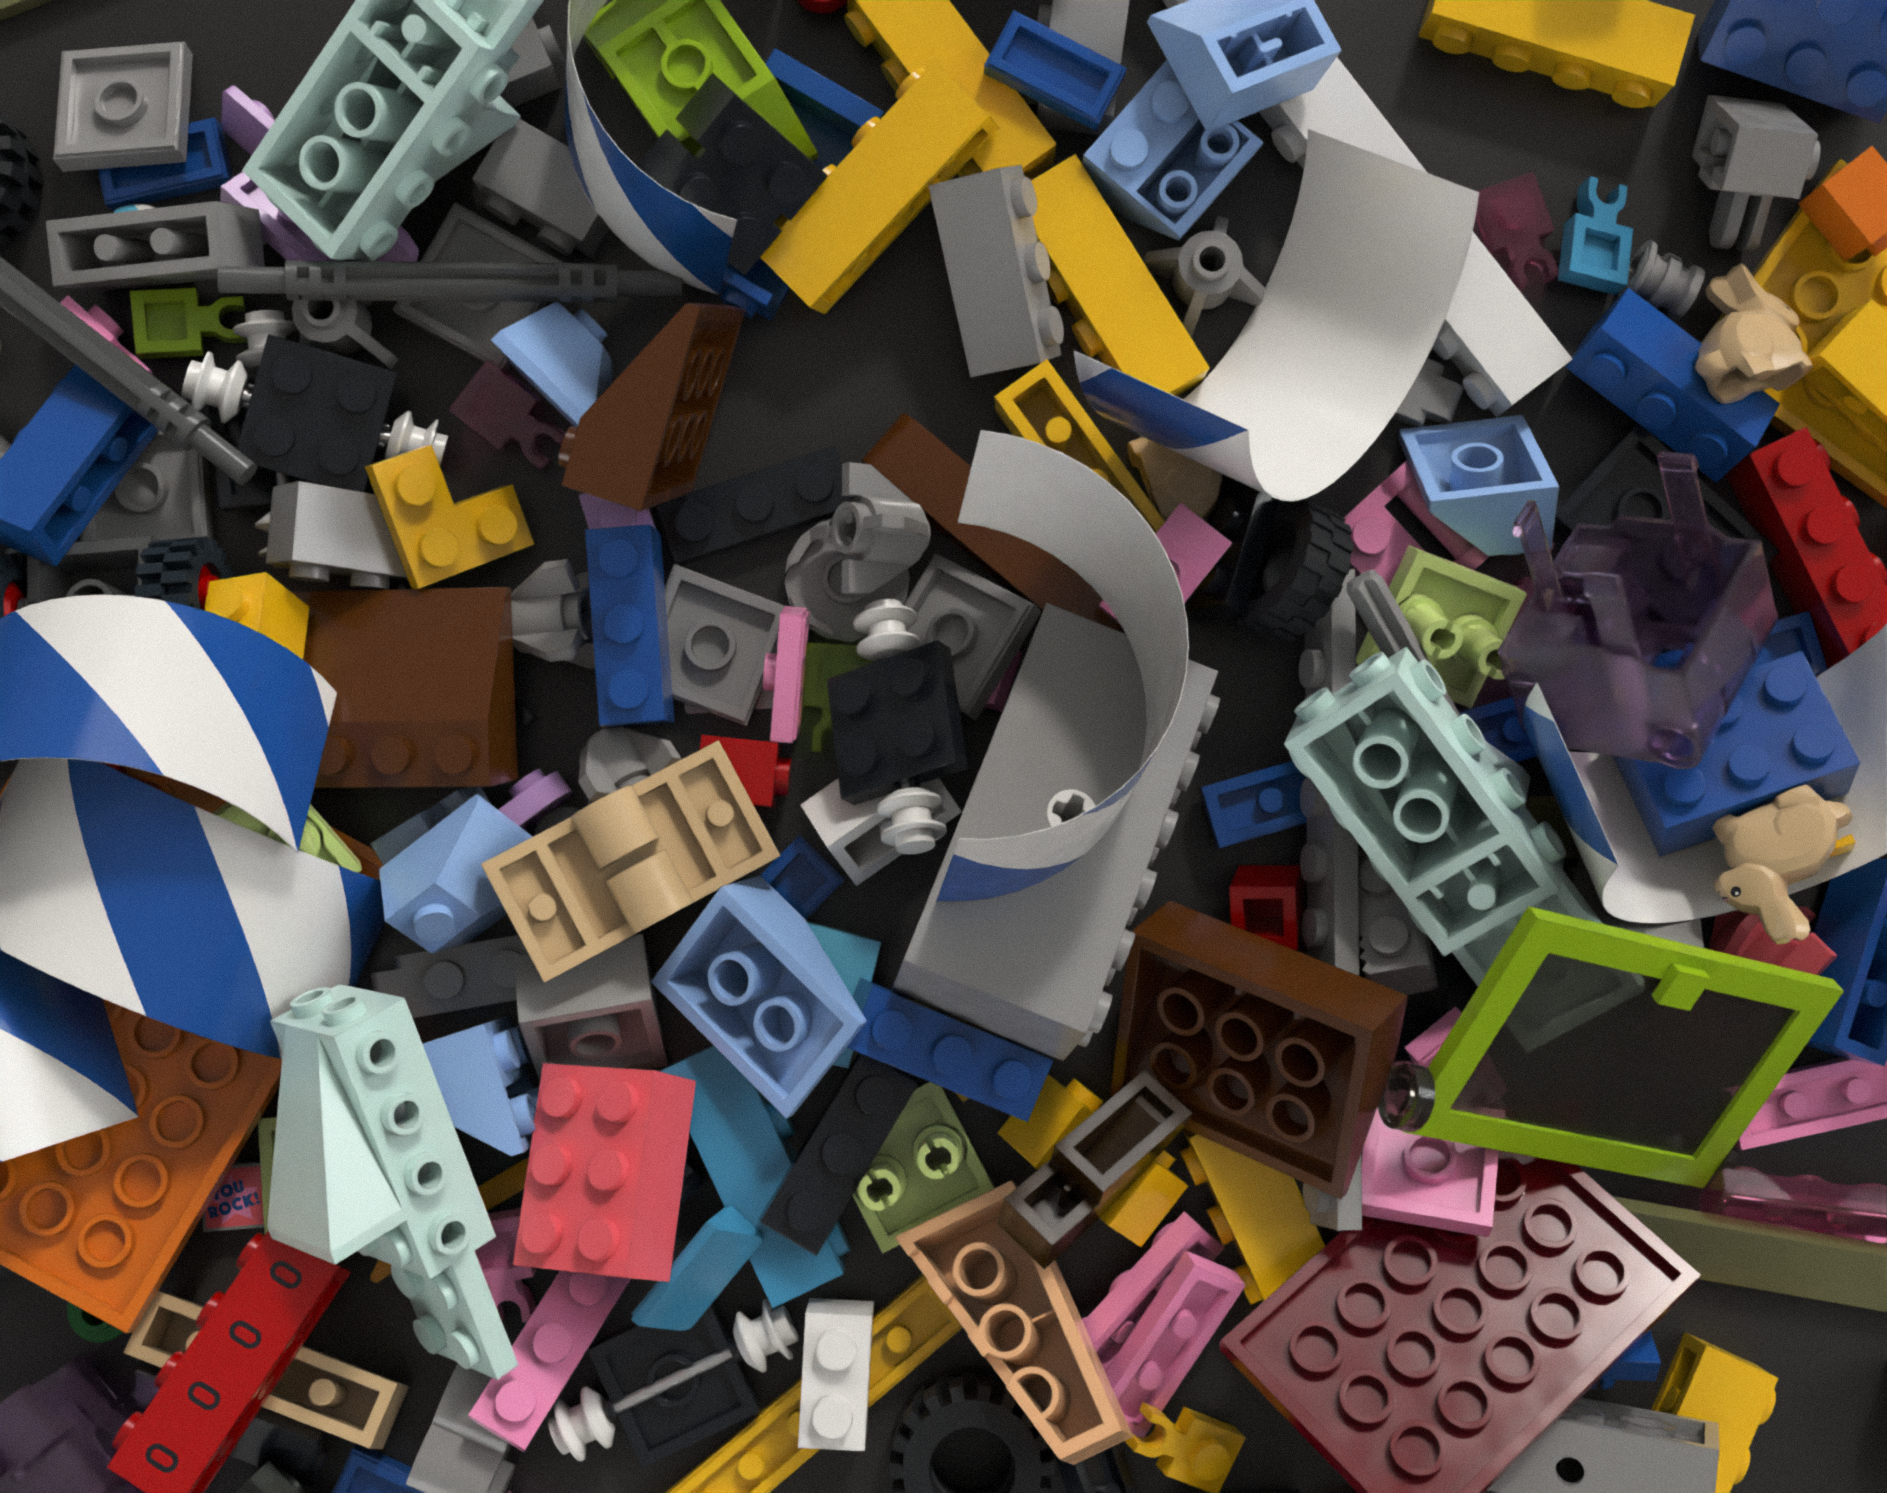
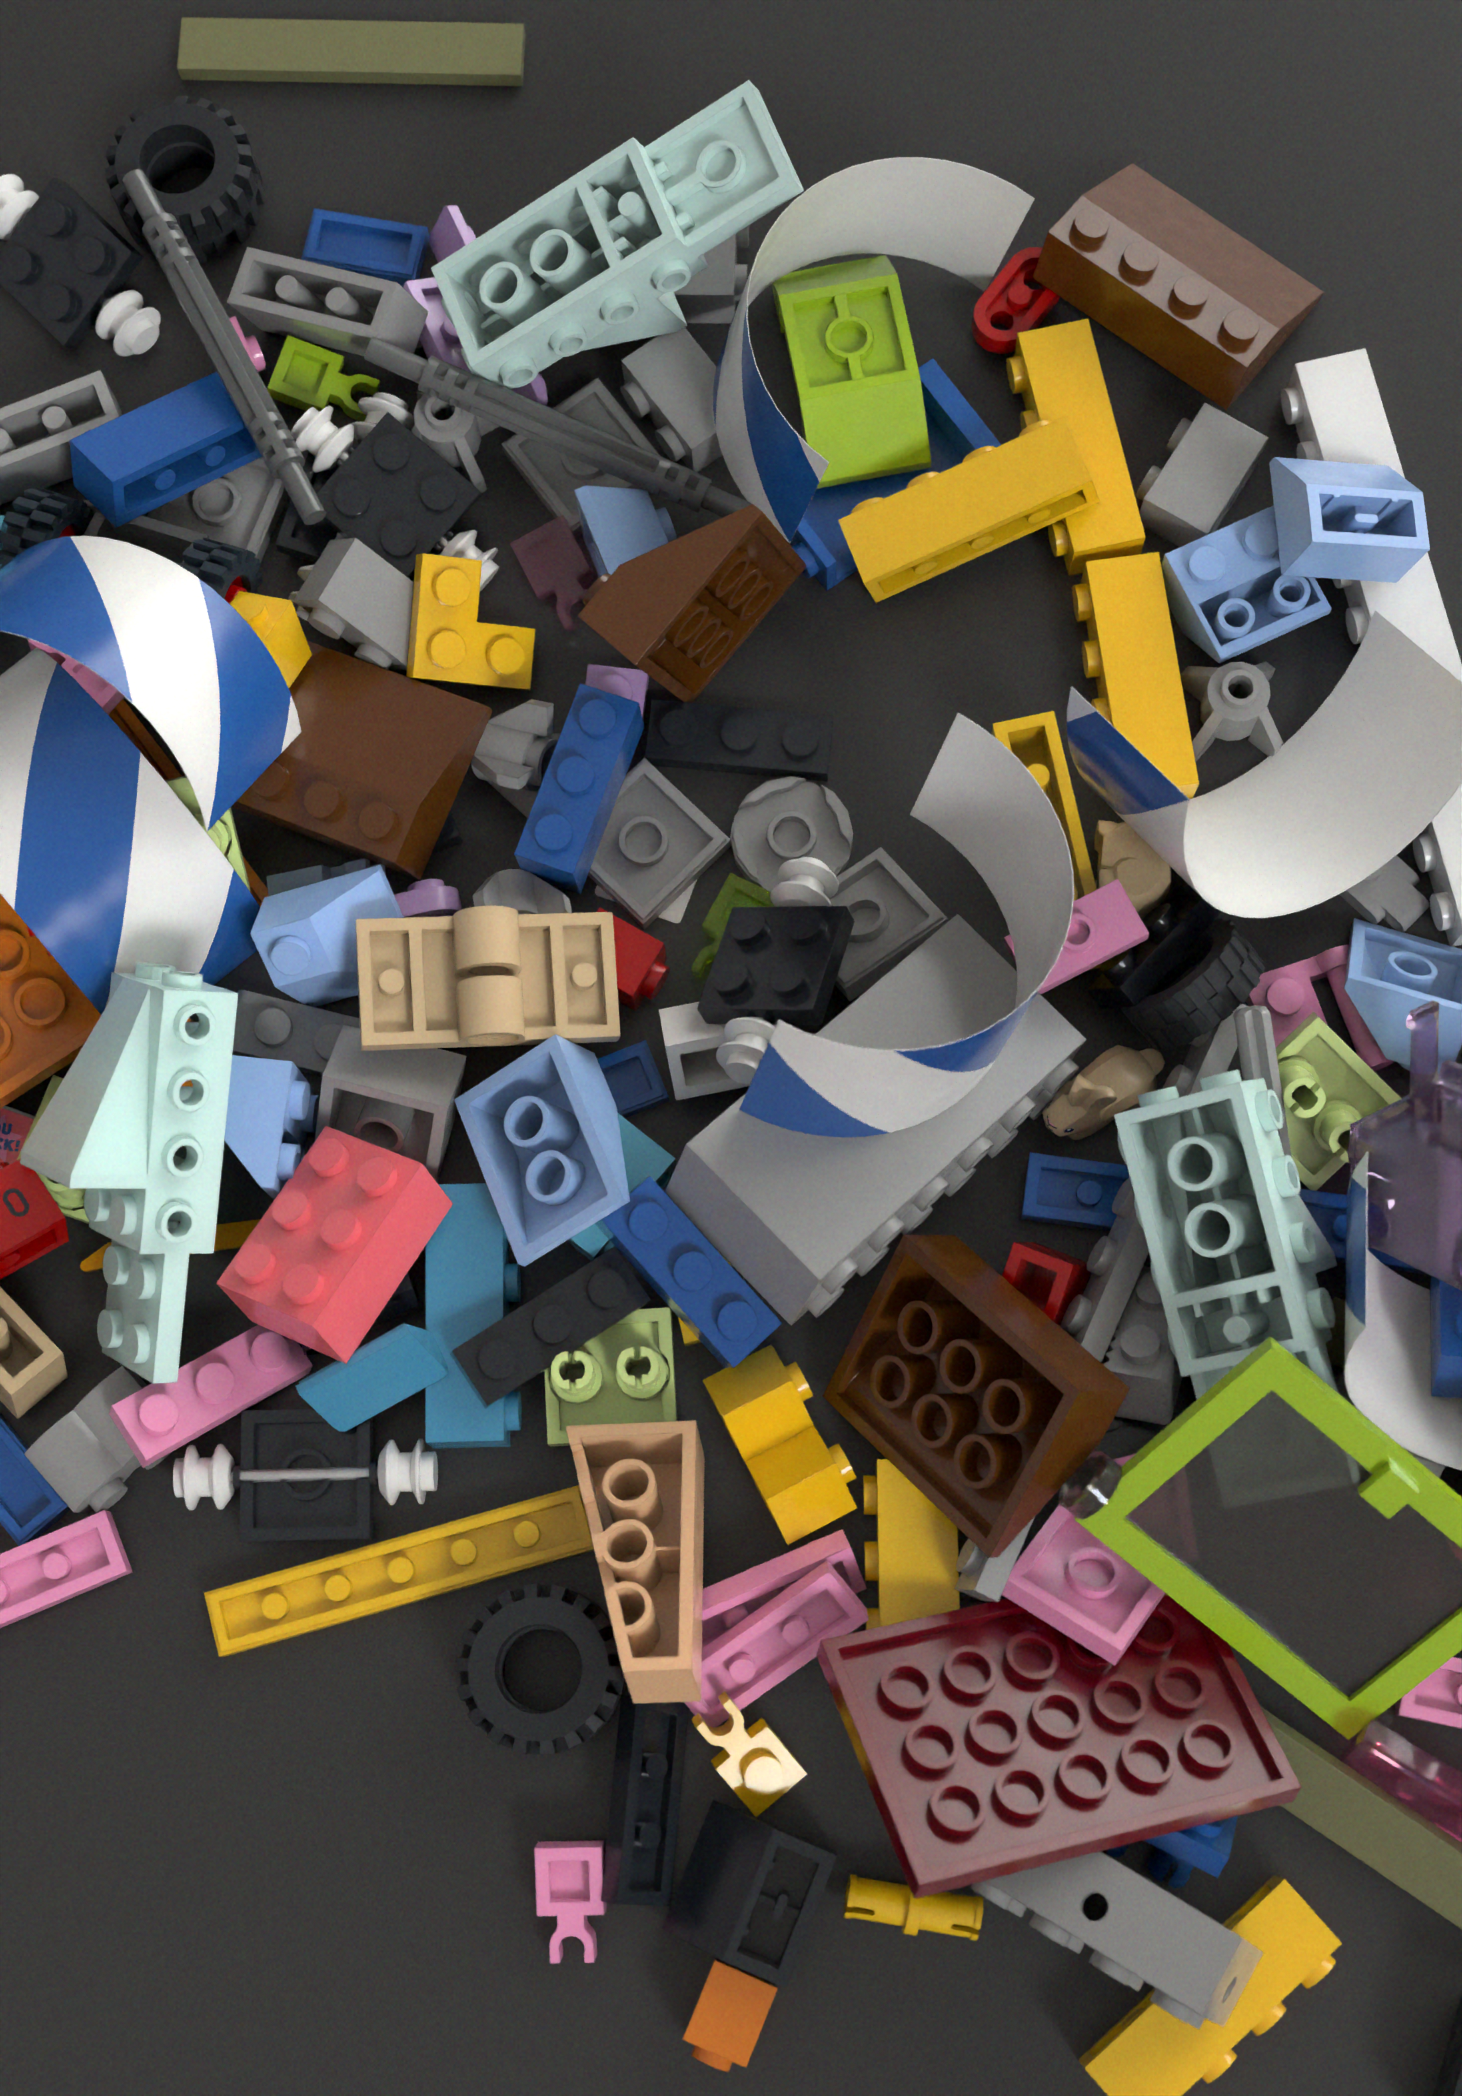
camera: 35 degrees right, 10 degrees down
(123, 106) = (355, 187): light grey tile -> none
(498, 1268) = (205, 1299): bright pink plate -> none
(739, 171) = (857, 436): black piece -> none
(786, 674) = (698, 890): bright pink plate -> none
(836, 1374) = (455, 1527): white brick -> none
(876, 530) = (835, 796): light grey brick -> none
(937, 482) = (896, 767): reddish brown beam -> none
(997, 270) = (1043, 618): light grey brick -> none
(1054, 70) = (1171, 474): blue tile -> none
(1092, 1168) = (773, 1437): dark brown slope -> none
(1248, 697) = (1102, 1090): none -> tan animal

